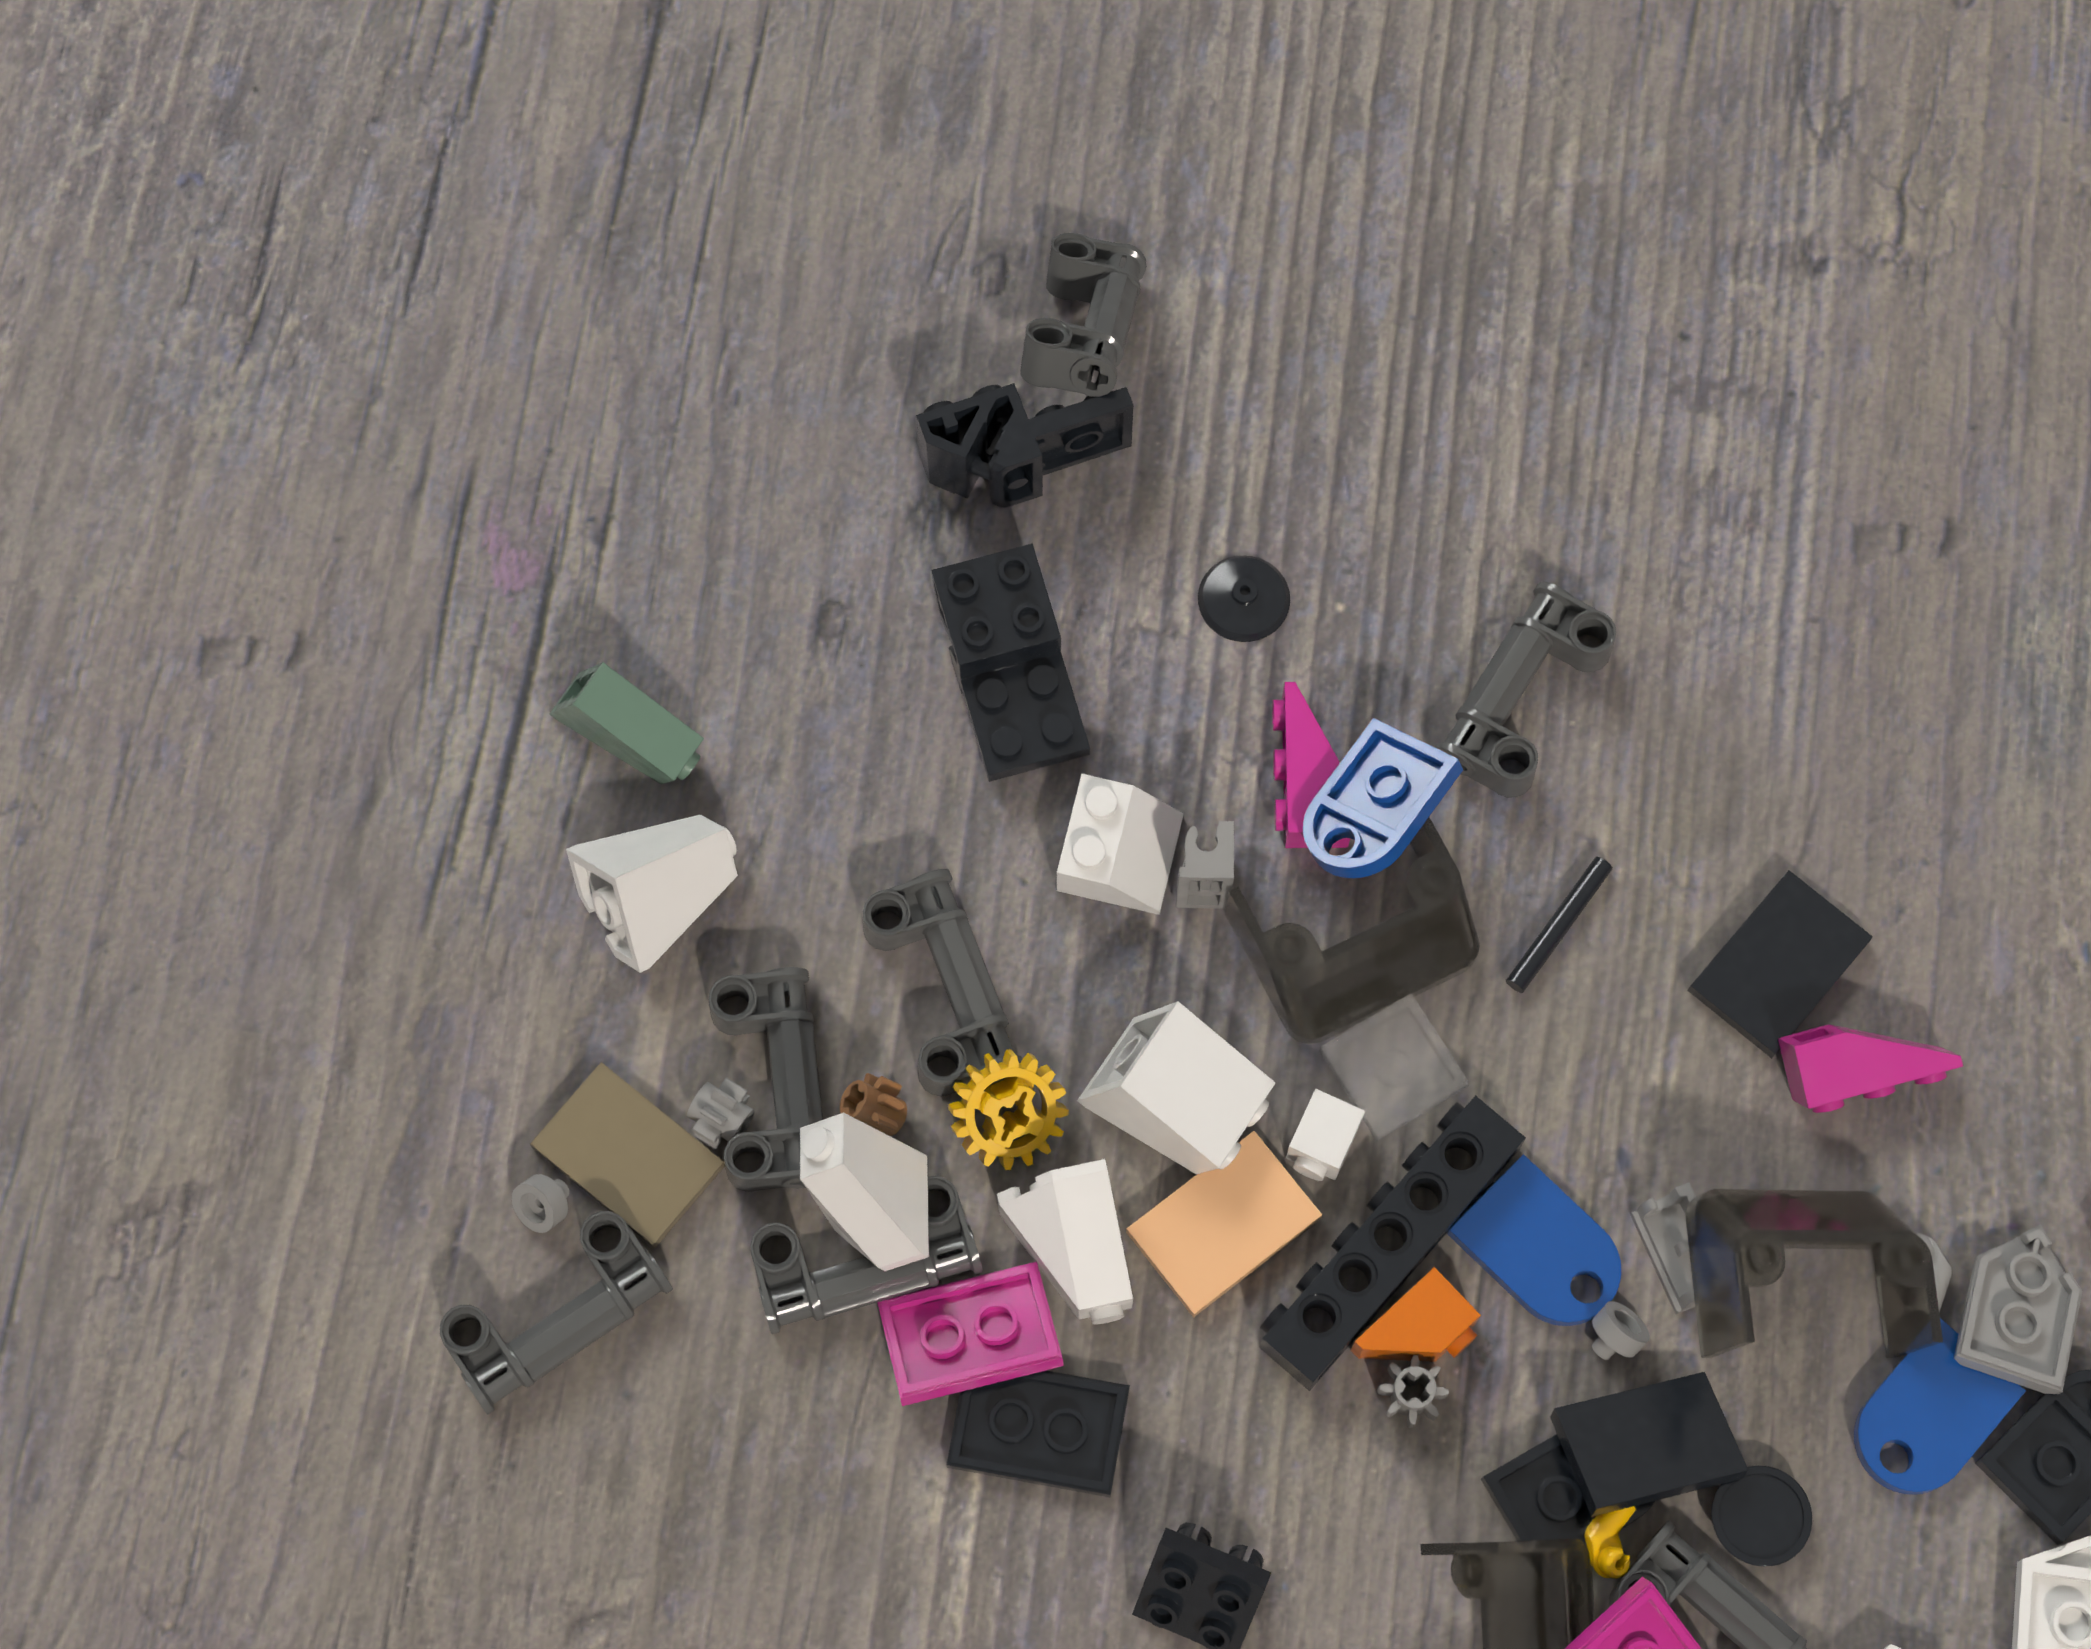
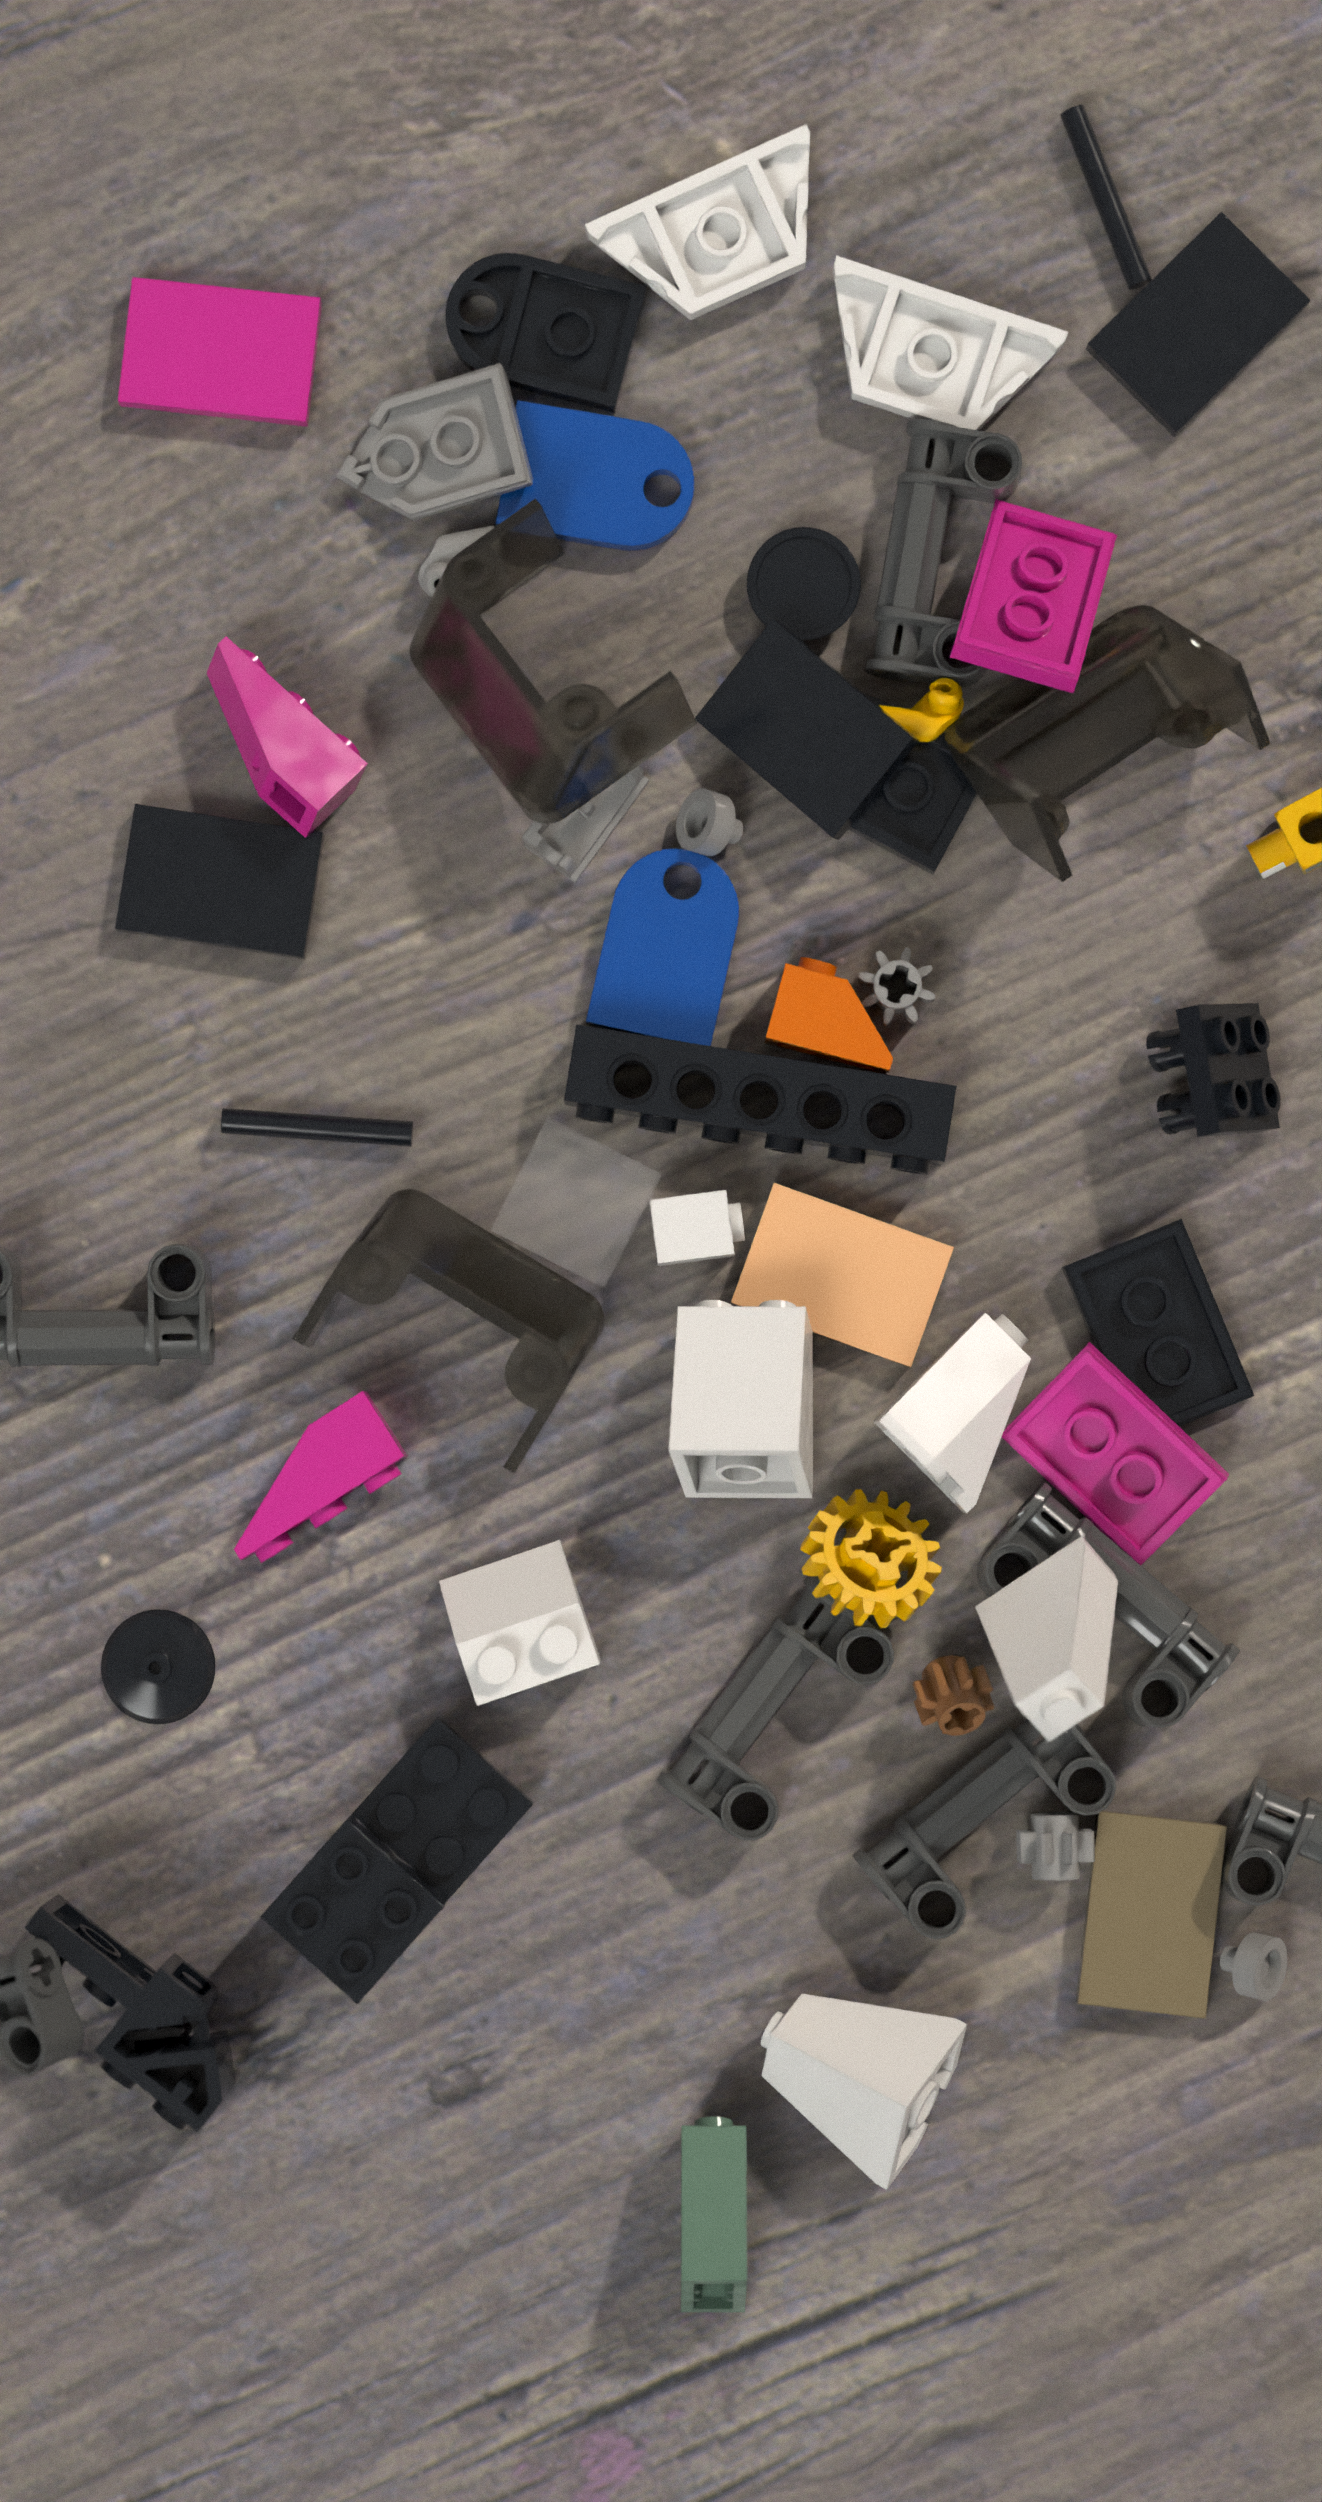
camera: 120 degrees left, 15 degrees up
(1204, 874) = (505, 1508): light grey hinge -> none
(1378, 799) = (317, 1382): tile -> none

